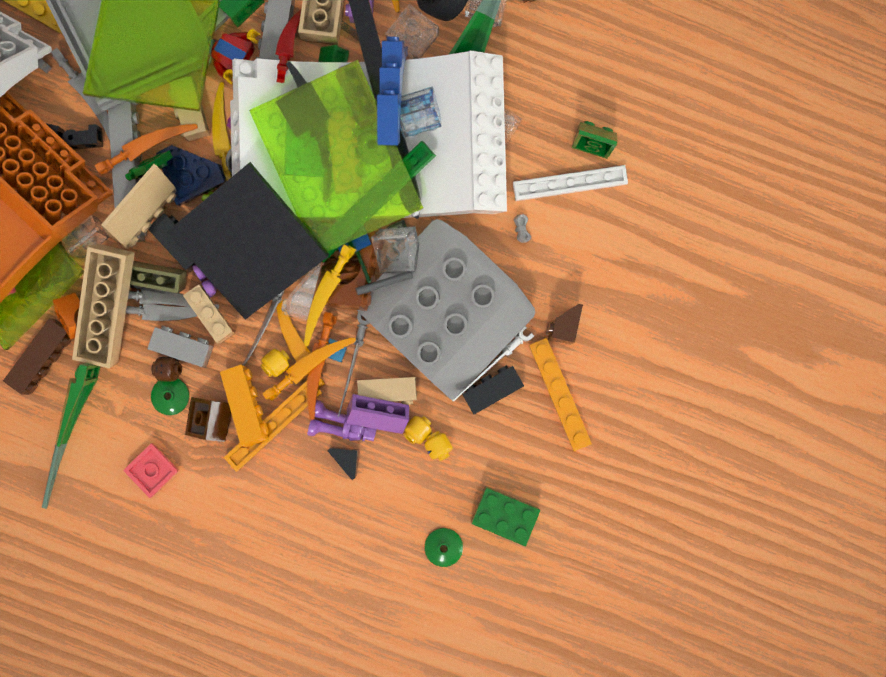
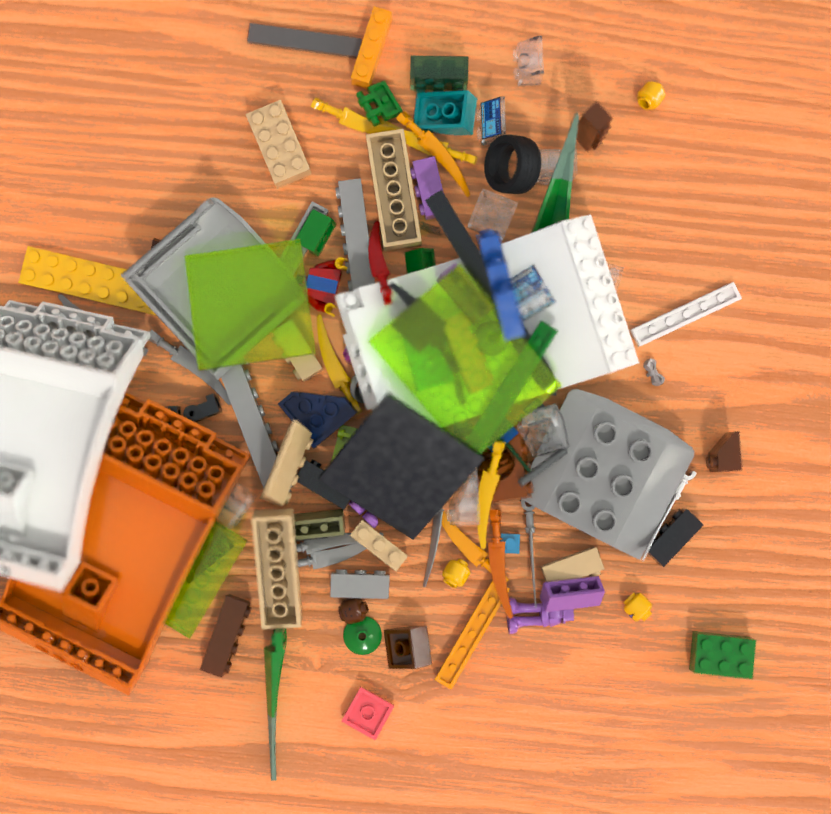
camera: 20 degrees left, 0 degrees up
(67, 311) = (242, 584): orange arch -> none
(142, 144) = (266, 399): orange sword -> none
(159, 160) = (279, 419): green plate -> none
(244, 406) = (440, 624): light orange brick -> none
(304, 366) = (487, 566): light orange sword -> none
(346, 459) = (554, 645): black slope -> none
(417, 430) = (613, 597): yellow head -> none
(441, 537) = (662, 698): green dish -> none
(560, 394) = (738, 522): light orange plate -> none
(595, 139) = (699, 266): green slope -> none

